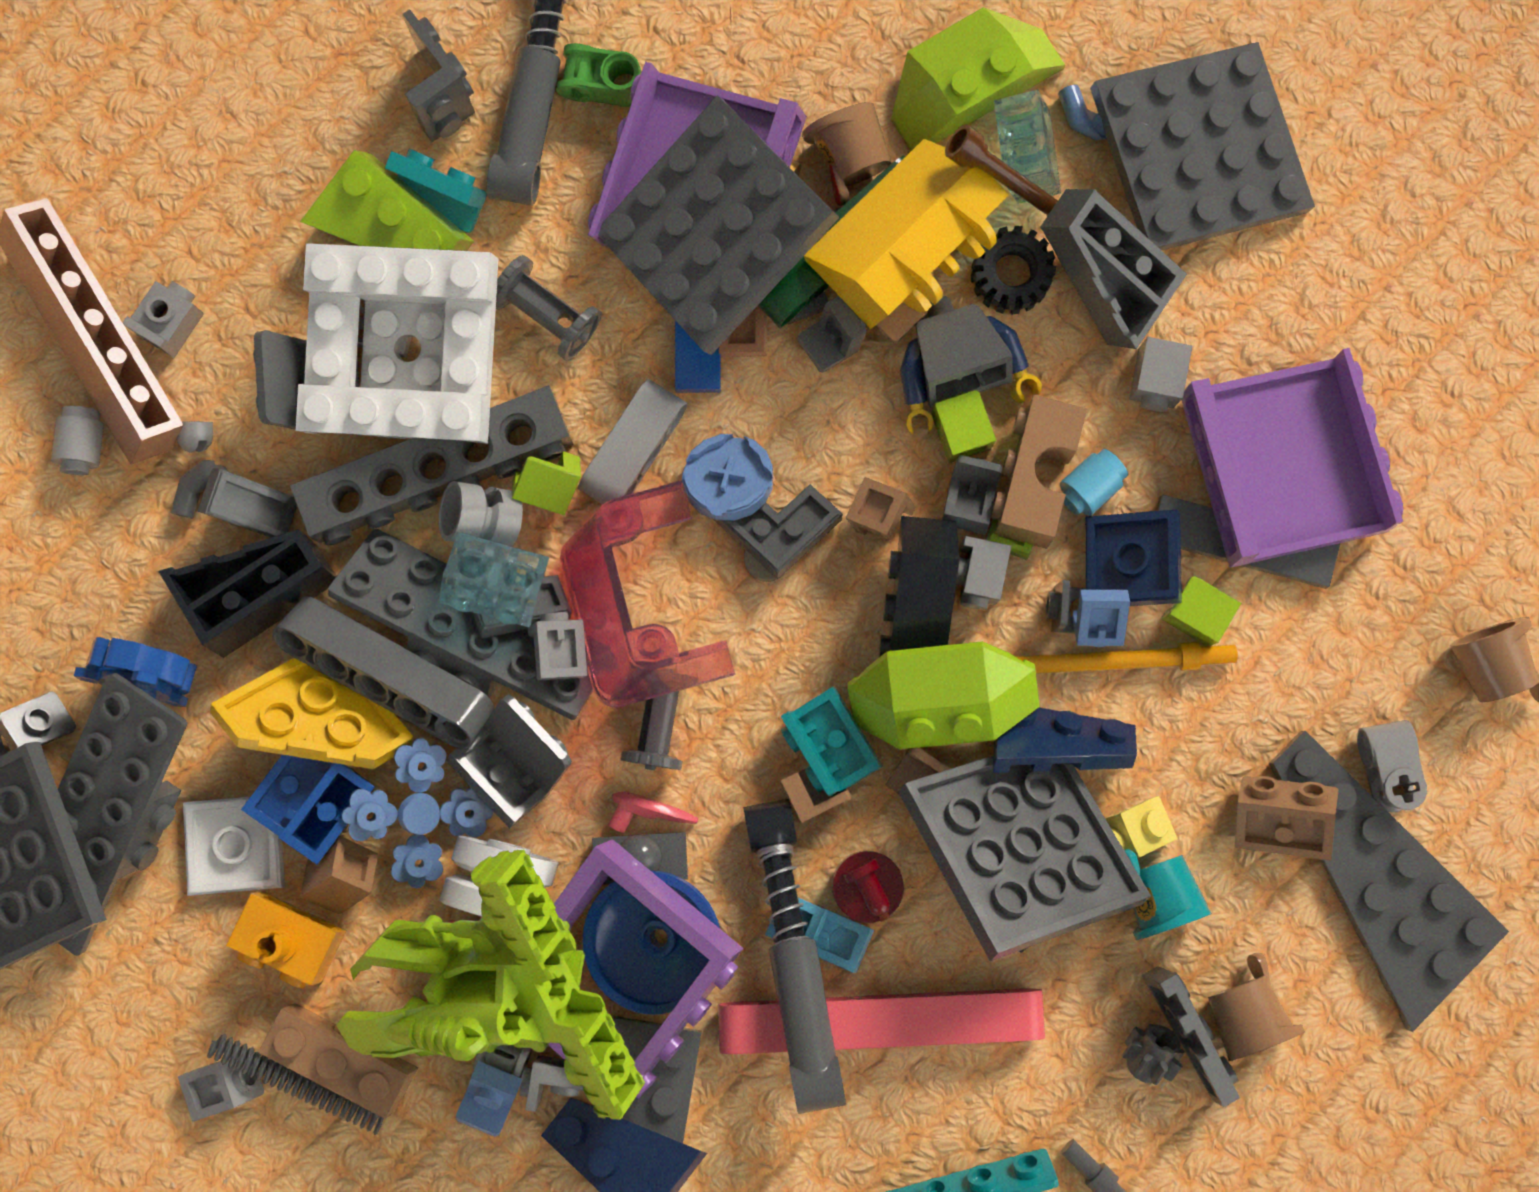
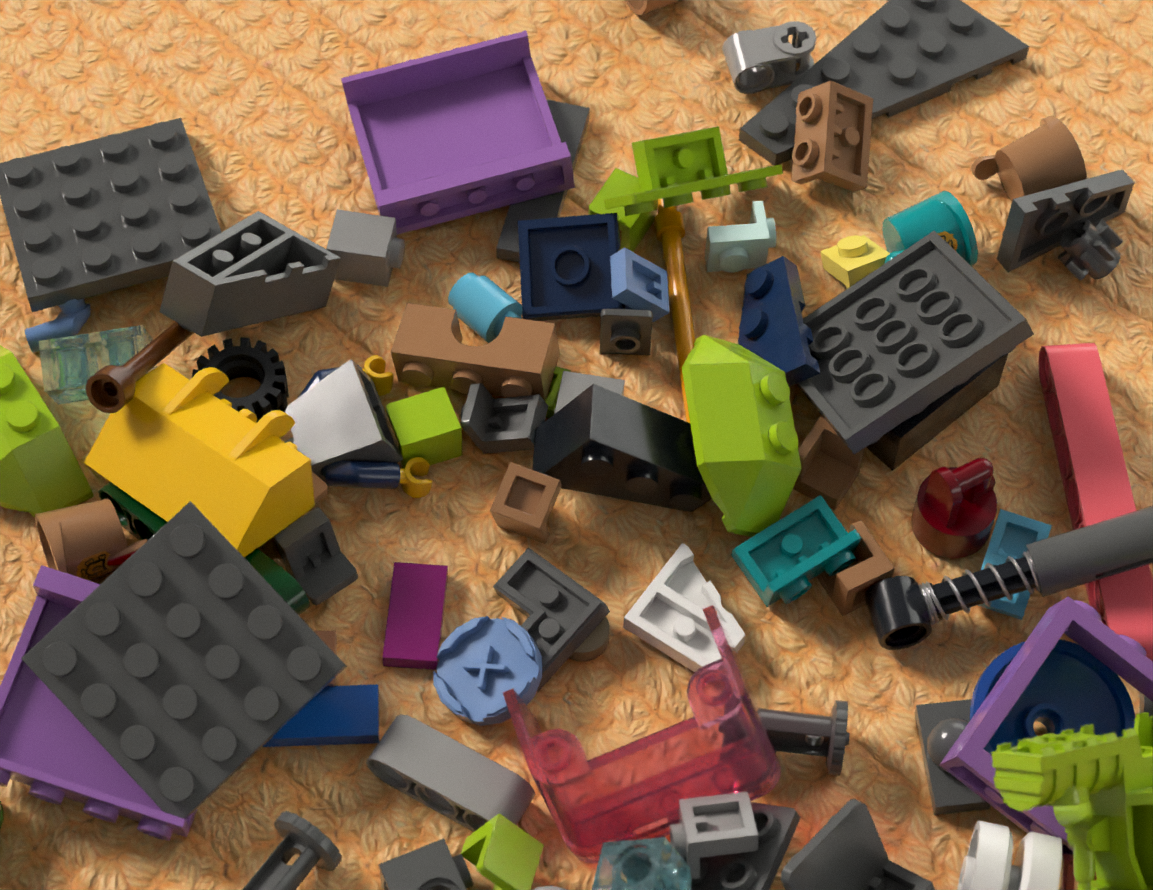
camera: 95 degrees left, 25 degrees down
(646, 807) = (890, 754): coral bar -> none
(776, 644) = (672, 614): none -> white wing
(788, 421) = (415, 616): none -> magenta tile
(1157, 714) = (741, 245): none -> light aqua bracket
(1232, 668) = (685, 164): none -> lime bracket

